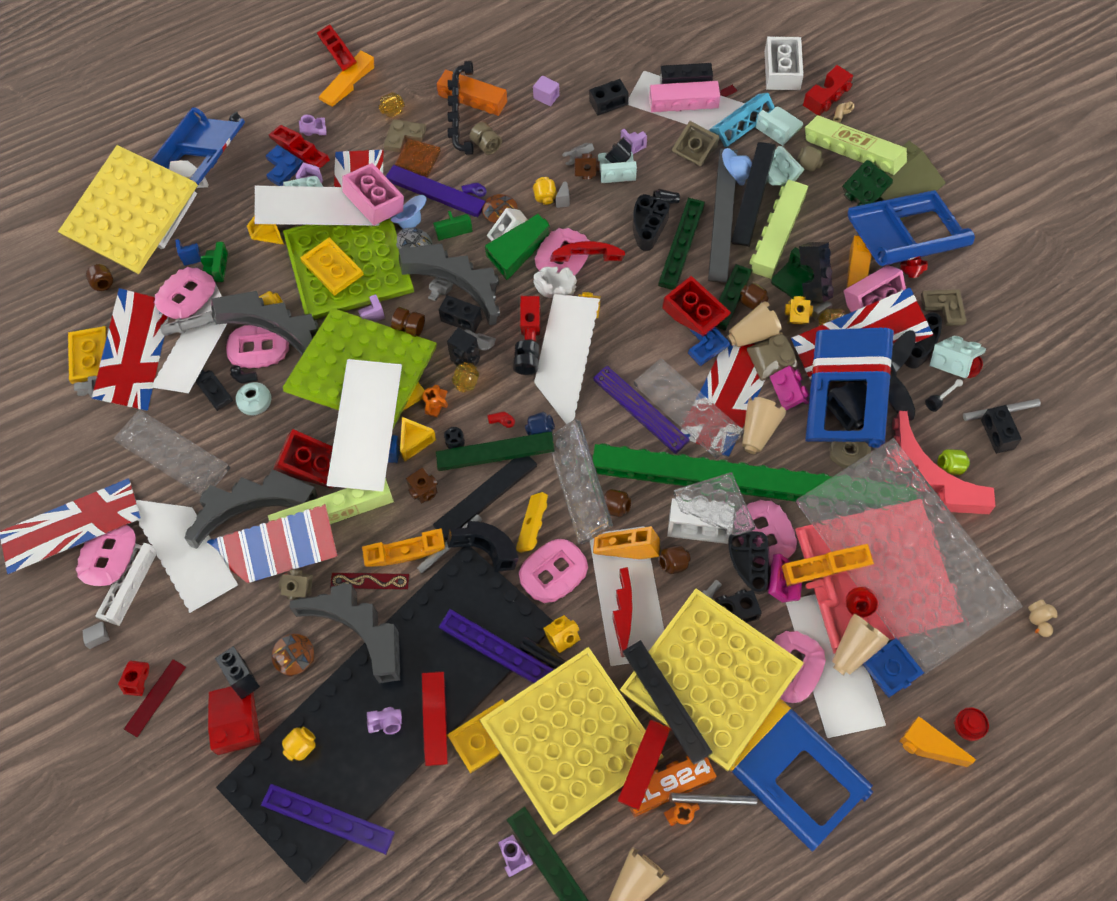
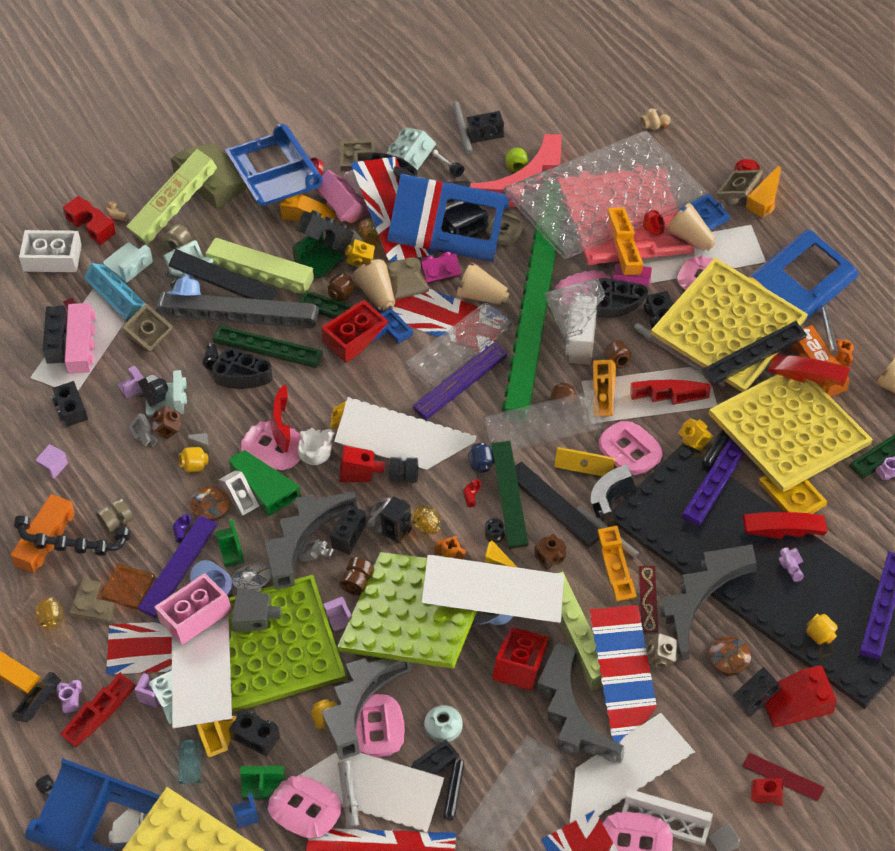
camera: 90 degrees left, 10 degrees down
(185, 406) = (453, 789): none -> black axle
(239, 213) = (190, 762): none -> clear light blue plate
(241, 376) = (417, 736): black arm -> none
(260, 253) = (250, 736): none -> black brick
(286, 165) = (122, 721): blue plate -> none
(314, 105) = (35, 698): none -> black hinge
(331, 266) = (283, 649): yellow plate -> none
(372, 240) = (253, 611): none -> dark grey torso
(866, 184) = (223, 192): dark green bracket -> none
(937, 707) = (739, 185): none -> dark tan slope

